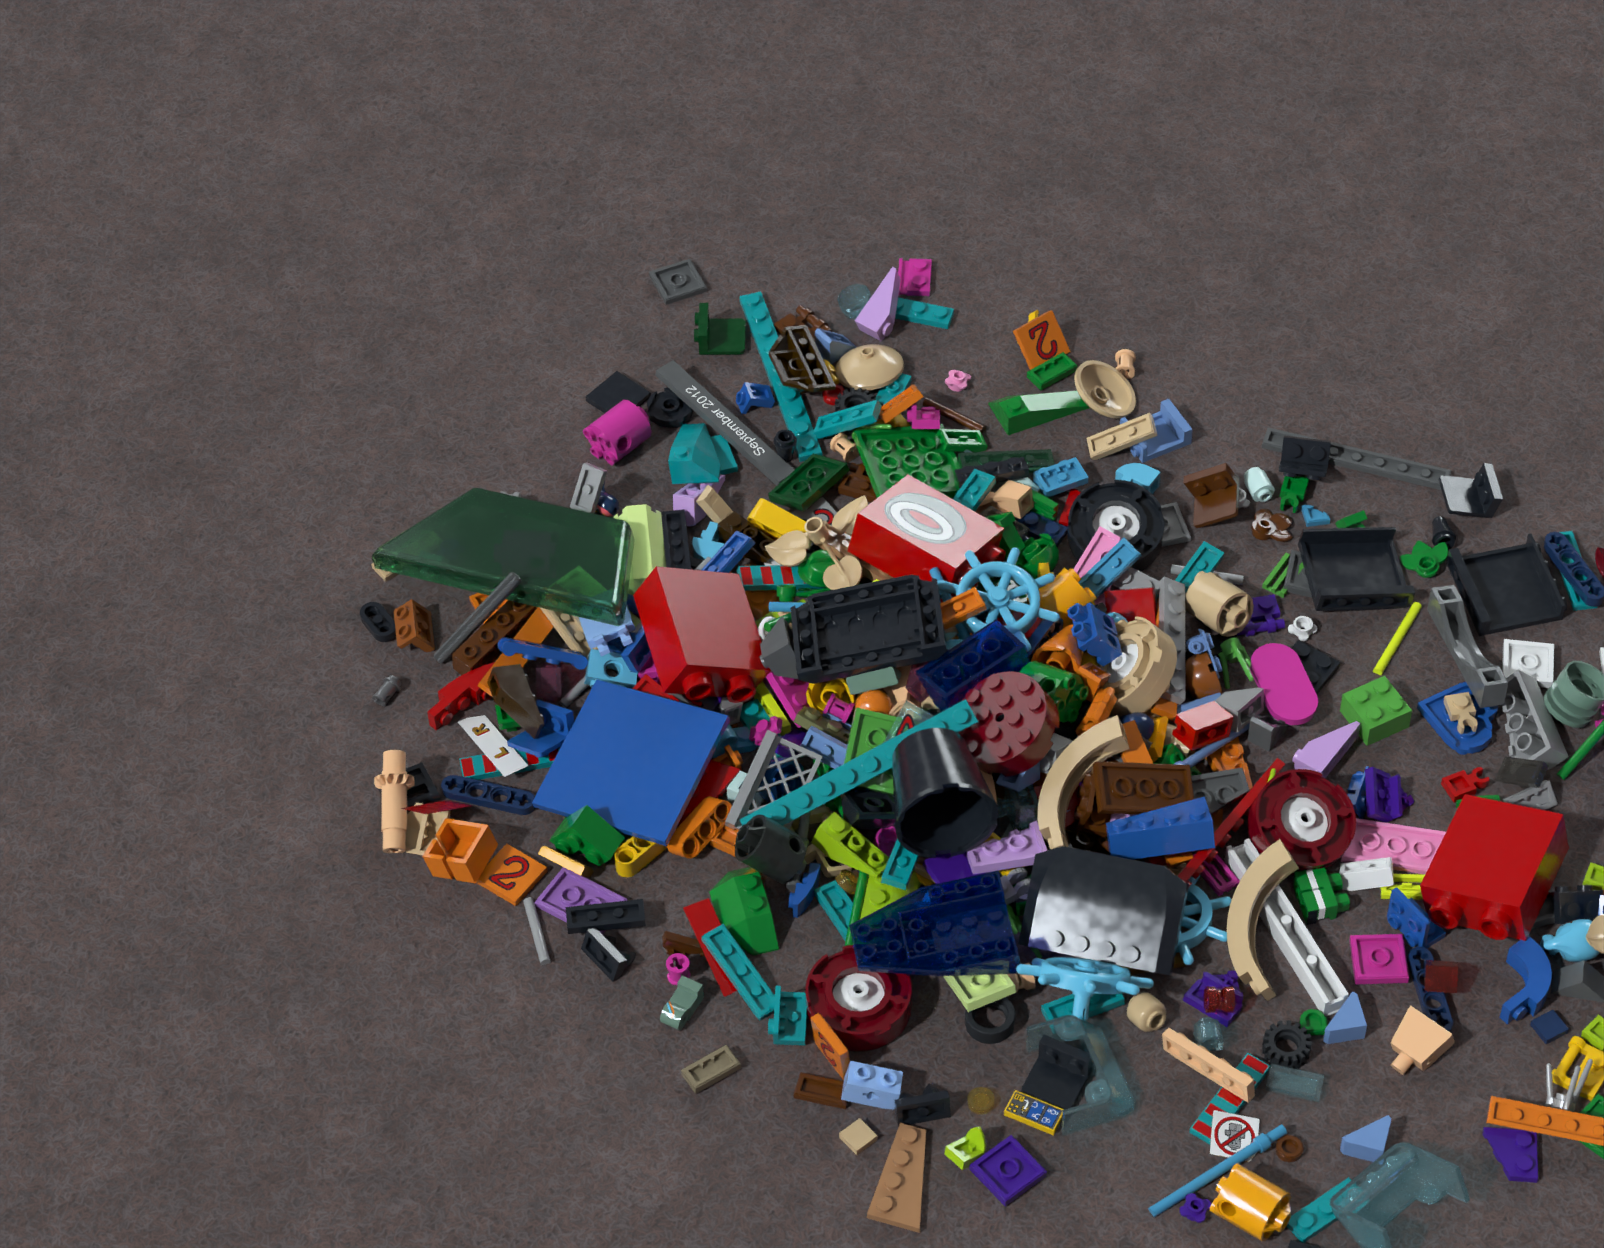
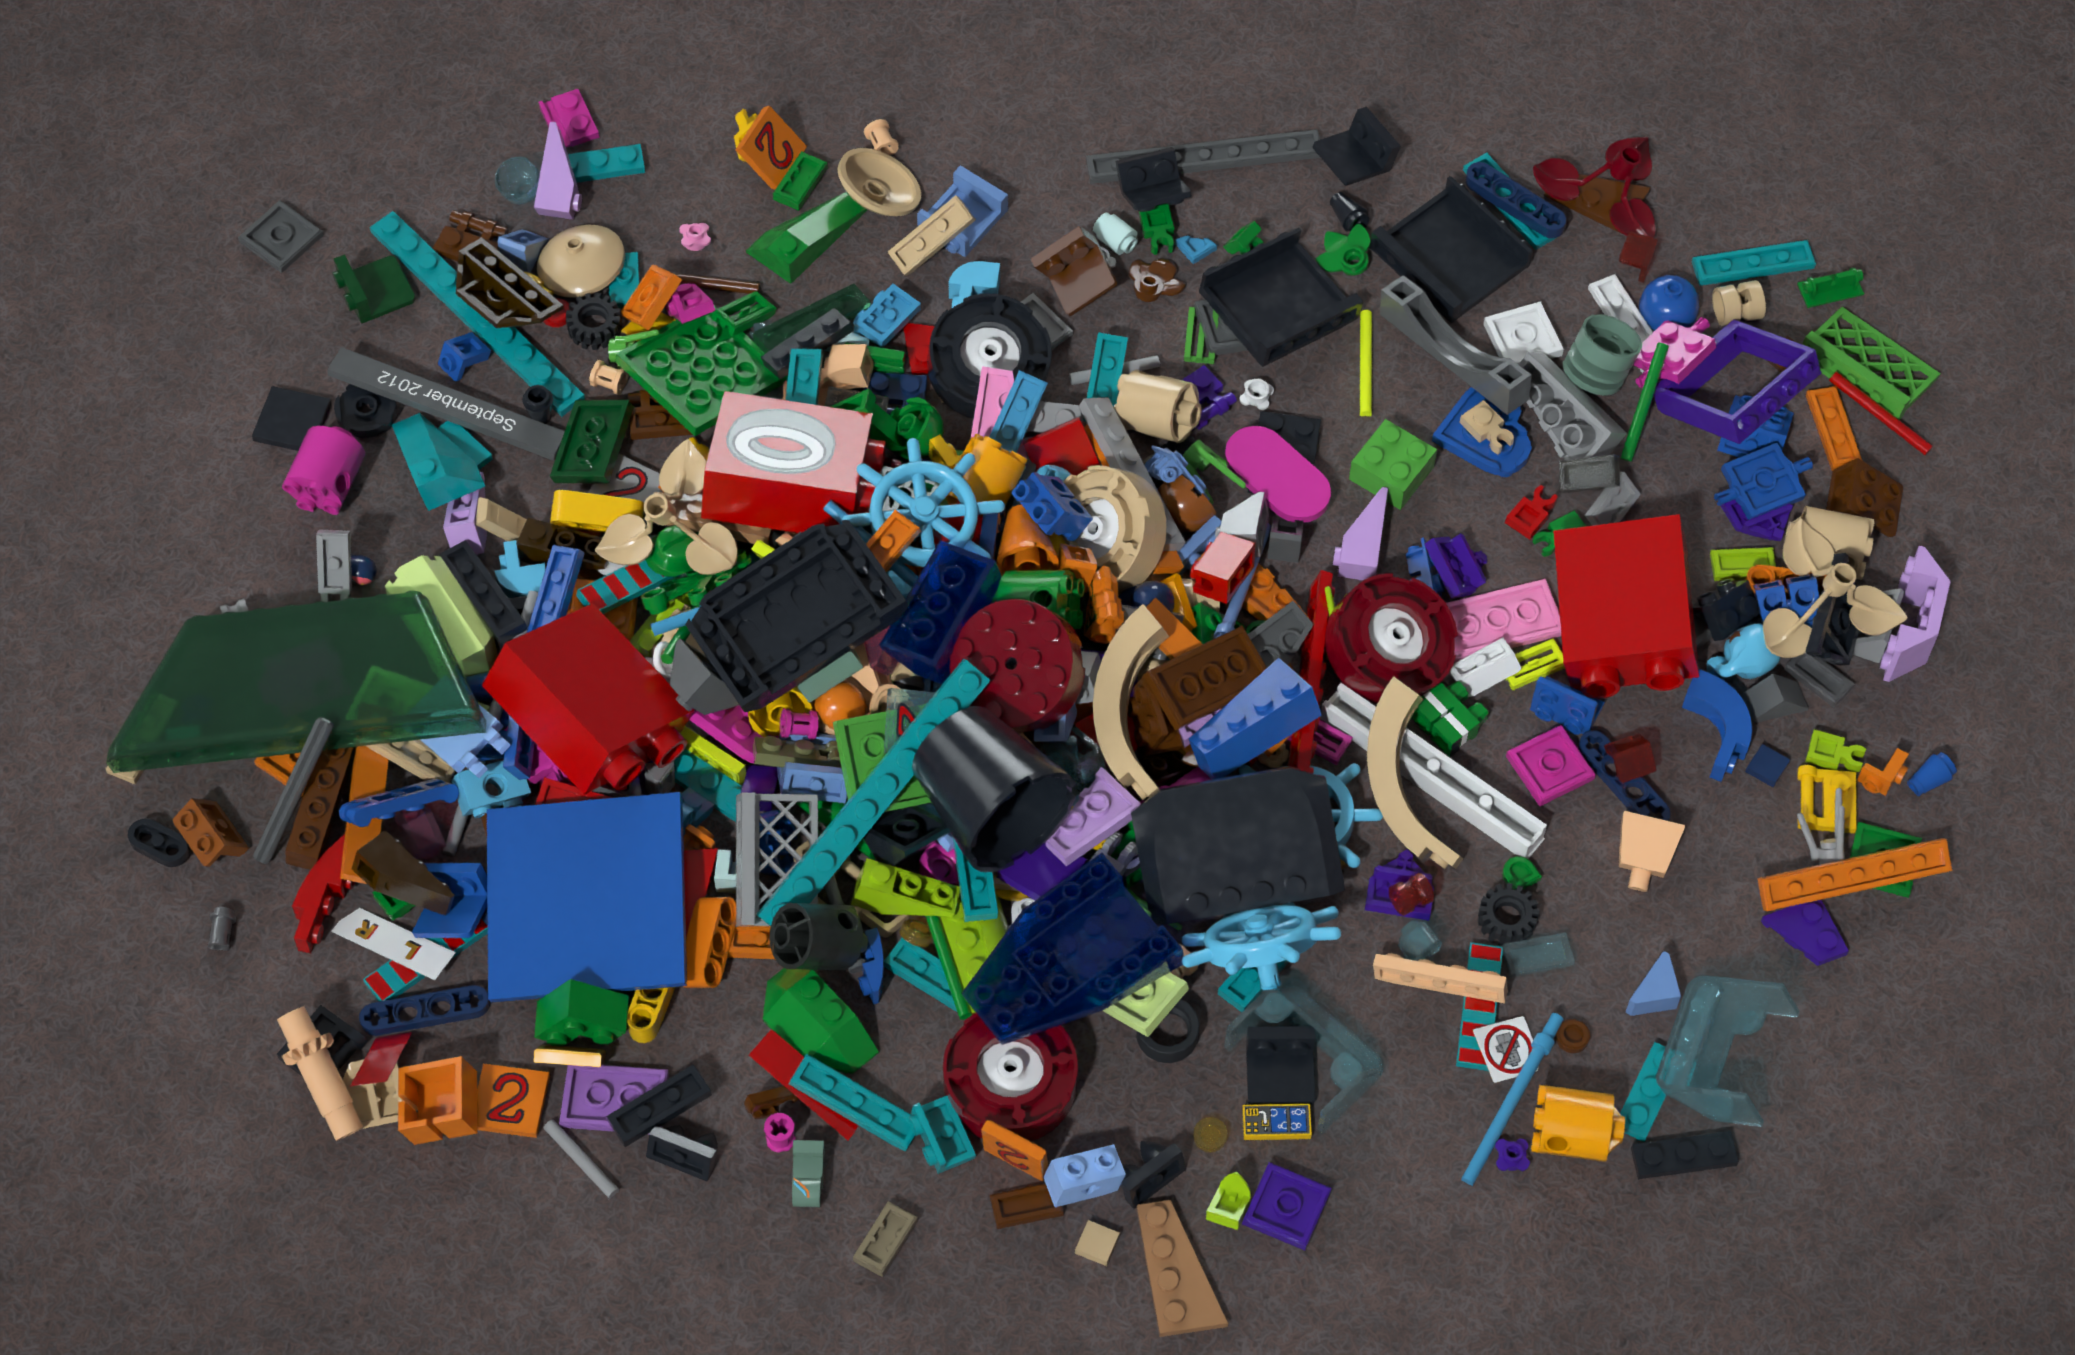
camera: 30 degrees left, 10 degrees up
(758, 732) = (717, 785): dark pink piece -> none
(847, 419) = (598, 341): teal plate -> none
(1146, 1012) = (1340, 951): tan head -> none
(1347, 1023) = (1560, 857): medium blue slope -> none

